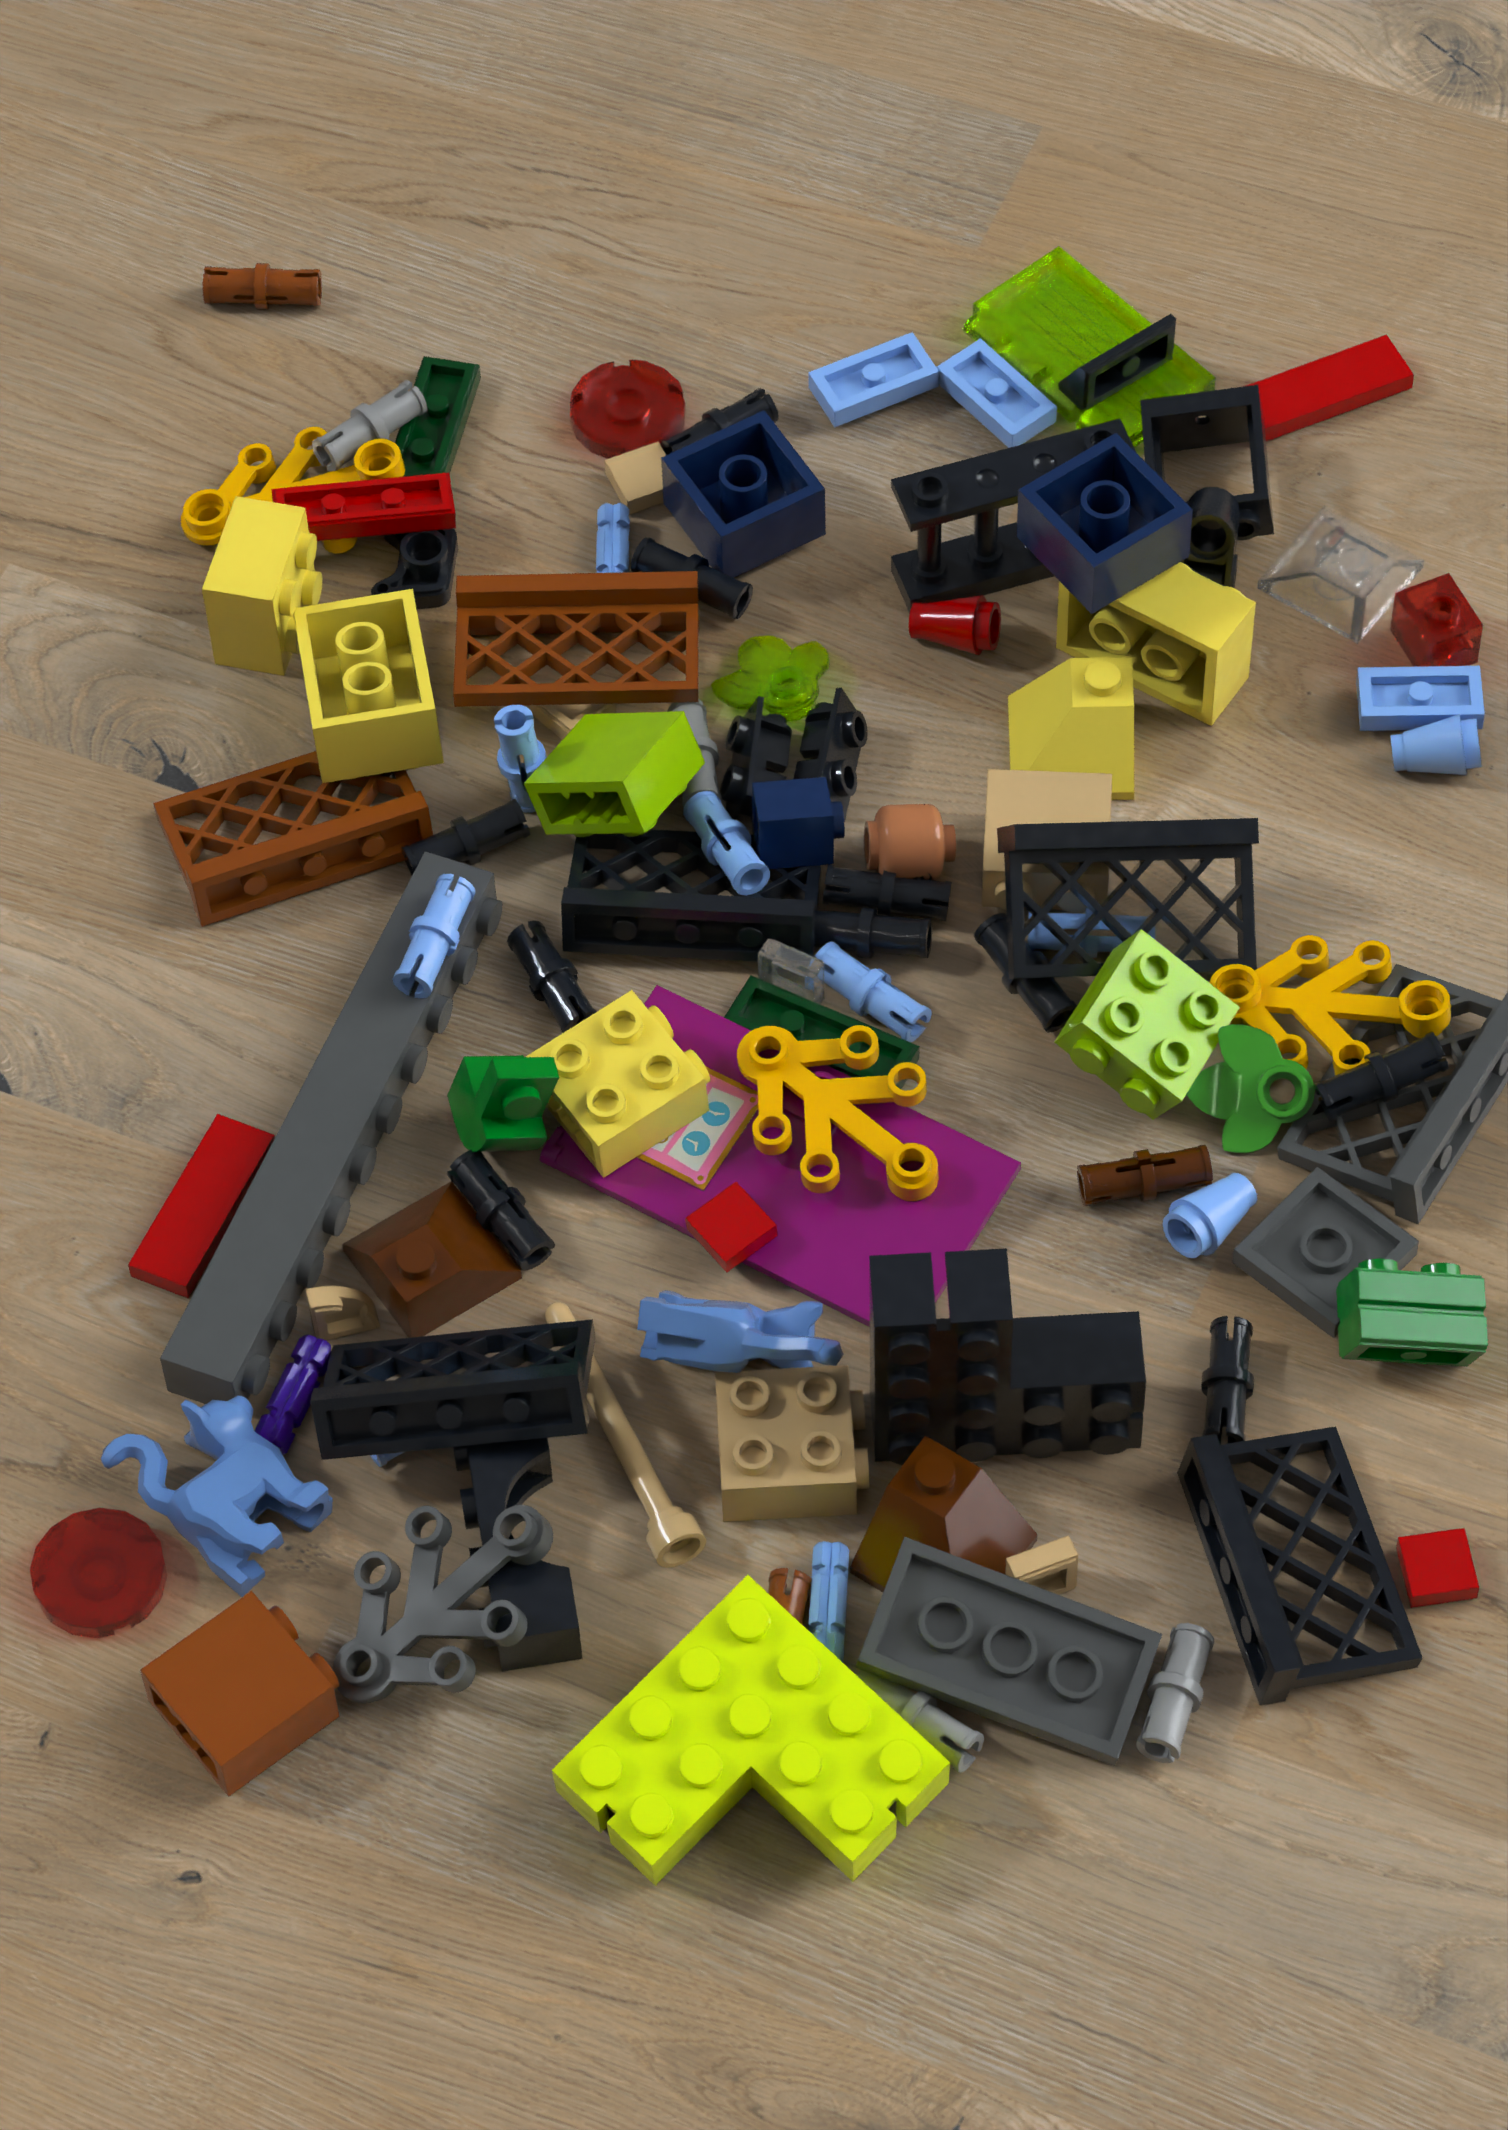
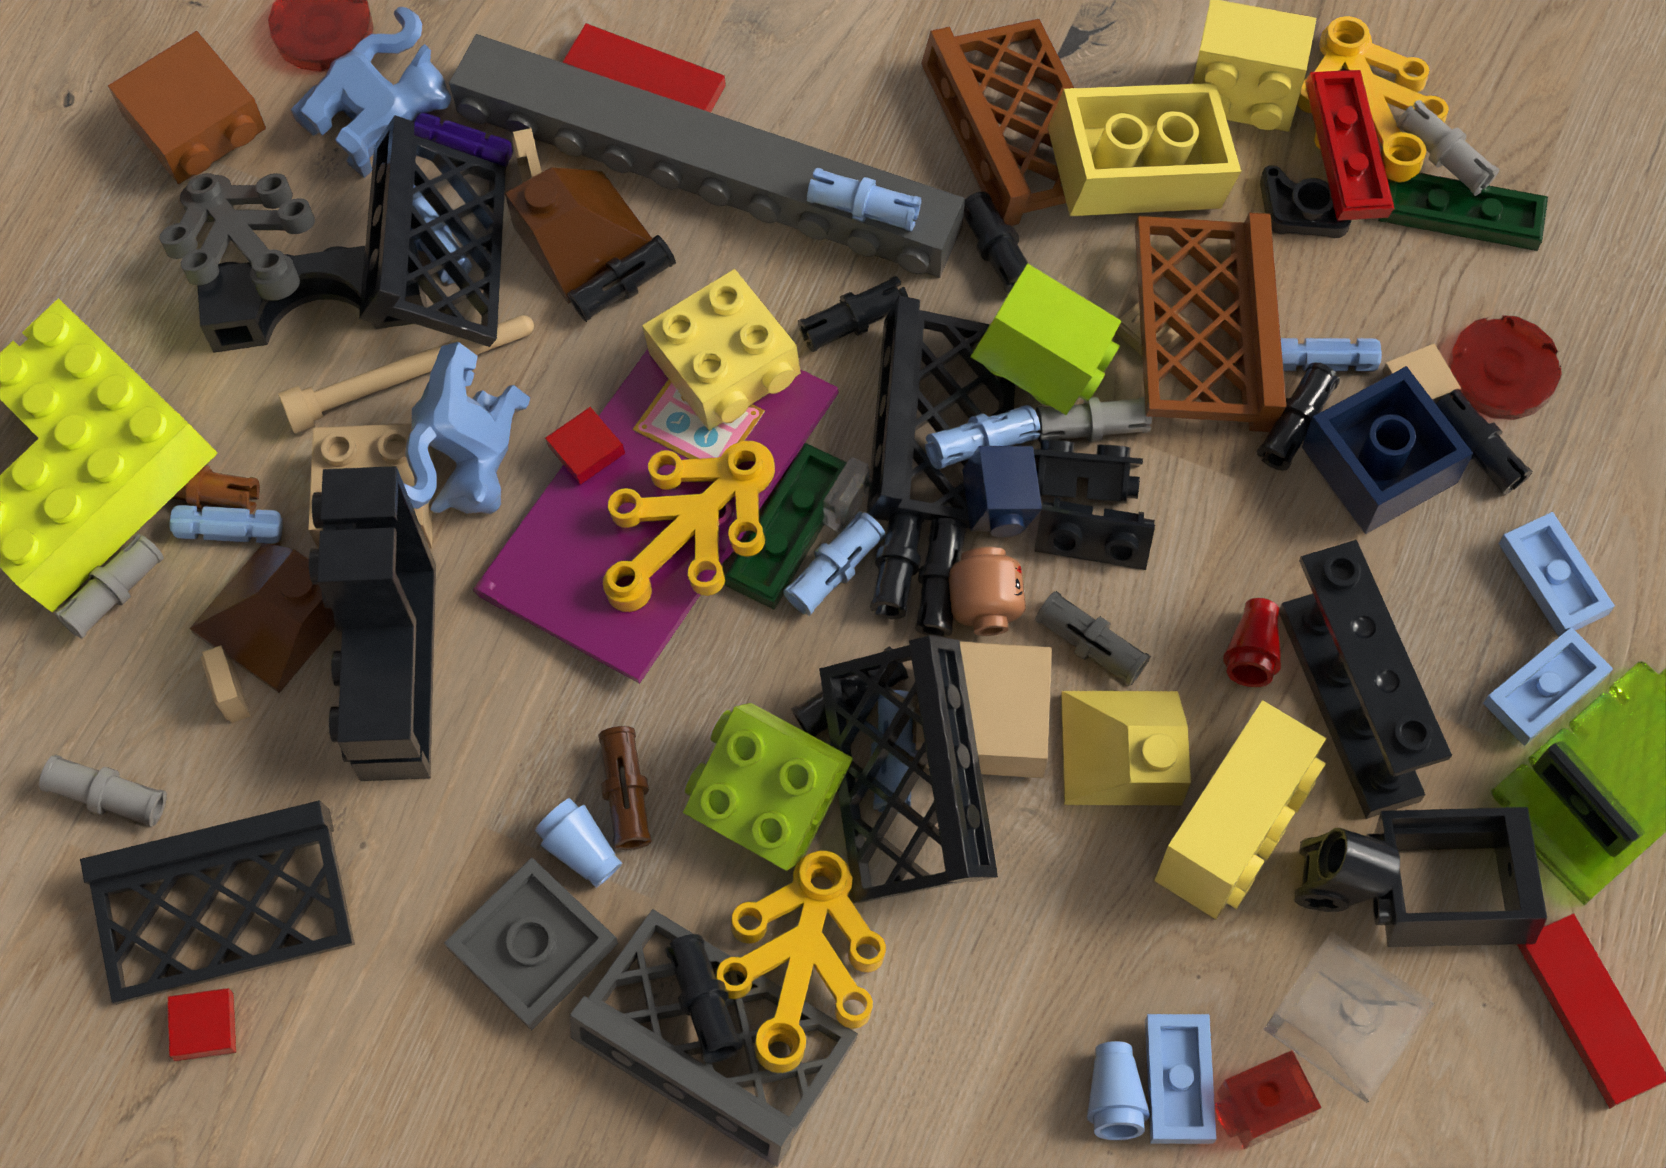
camera: 90 degrees right, 10 degrees up
(262, 286) = (1619, 70): dark orange pin -> none
(502, 1101) = (701, 258): green brick -> none
(518, 738) = (1066, 258): light blue pin -> none
(777, 673) = (1190, 489): clear neon green plate -> none
(955, 760) = (1092, 638): none -> dark grey pin
(1009, 1651) = (144, 652): dark grey plate -> none
(1104, 523) = (1295, 723): dark blue brick -> none
(1227, 1379) = (404, 850): black pin -> none
(1241, 1088) = (707, 884): bright green plate -> none
(1411, 1314) = (437, 1007): brick -> none

